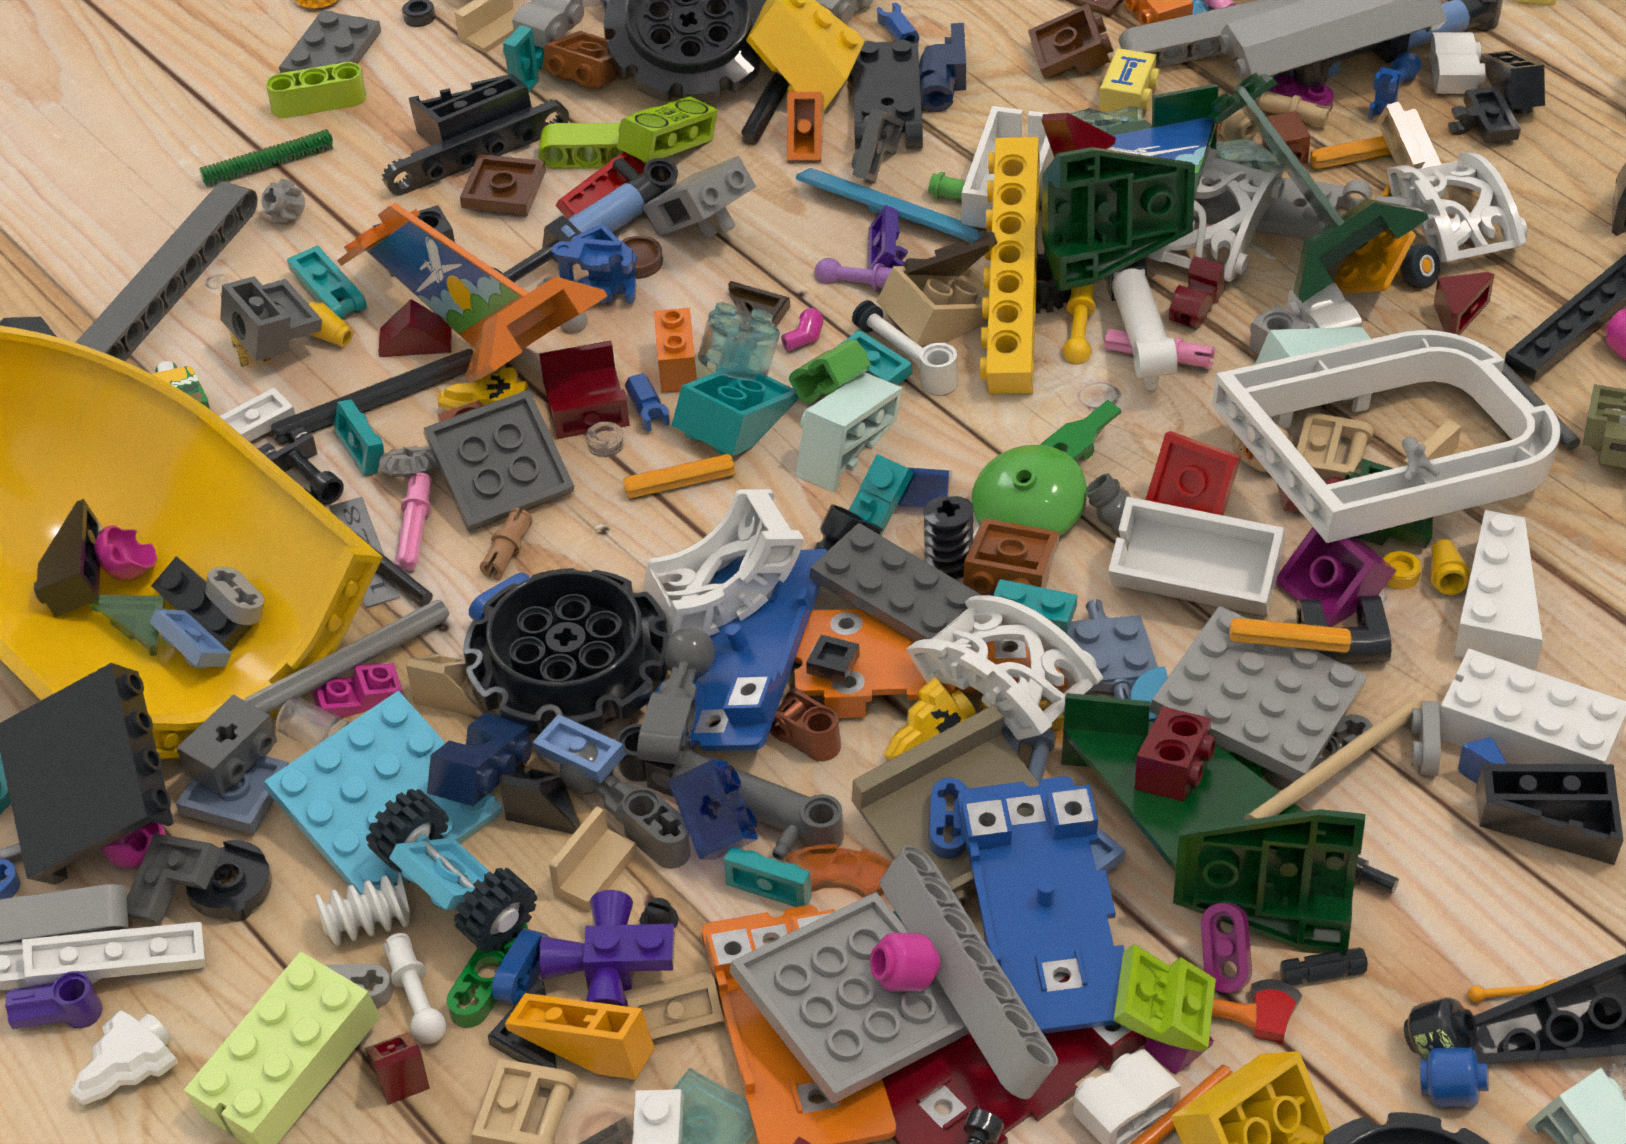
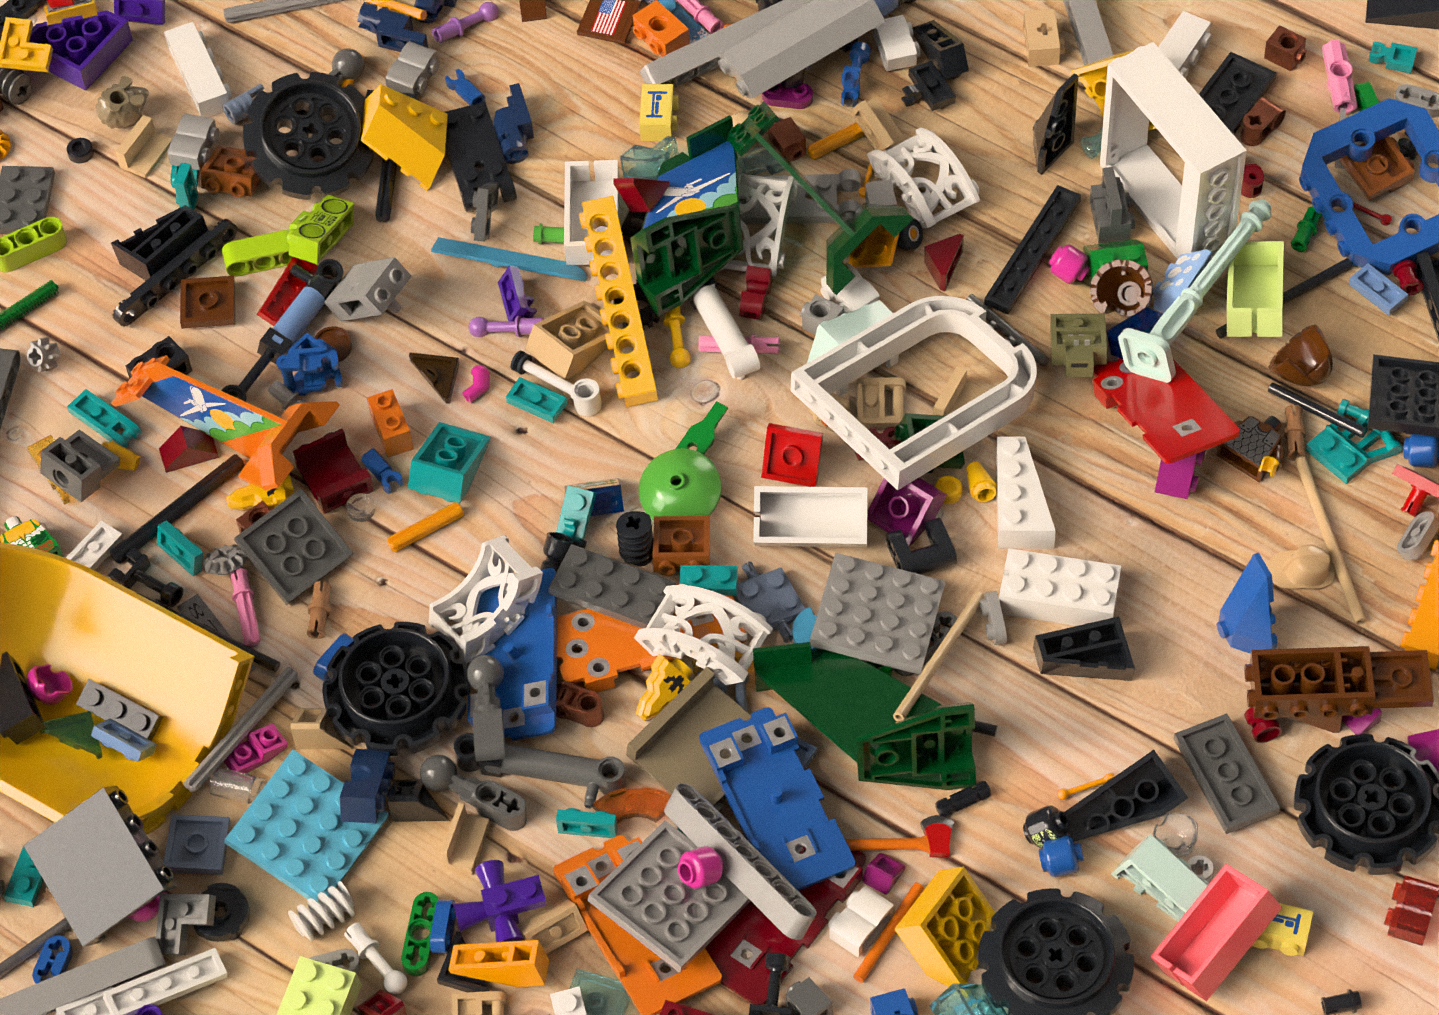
camera: 15 degrees left, 10 degrees up
(227, 744) = (186, 816): dark grey brick -> none
(234, 595) = (146, 701): light grey beam -> none
(411, 843) = (378, 875): plate -> none
(567, 734) = (418, 754): medium blue plate -> none
(659, 912) = (521, 868): black piece -> none
(698, 797) = (546, 799): clear blue brick -> none
(739, 342) = (437, 409): clear light blue brick -> none
(805, 126) = (424, 202): orange slope -> none
(829, 371) = (511, 420): bright green brick -> none
(833, 658) = (584, 654): black plate -> none
(842, 426) = (533, 461): light aqua wedge -> none
(940, 817) = (689, 754): blue beam -> none
(952, 259) = (574, 307): dark brown tile -> none
(1071, 42) = (604, 82): reddish brown plate -> none
(1108, 499) = (739, 483): dark grey animal -> none
(1165, 1000) = (870, 849): lime slope -> none
(1174, 754) = (835, 676): dark red brick -> none
(1223, 947) = (899, 801): magenta plate -> none
(1290, 635) = (889, 566): light orange axle -> none
(1308, 111) = (790, 109): tan pin -> none
(1416, 458) = (945, 413): light grey bar -> none
(1476, 754) = (1032, 626): blue slope -> none

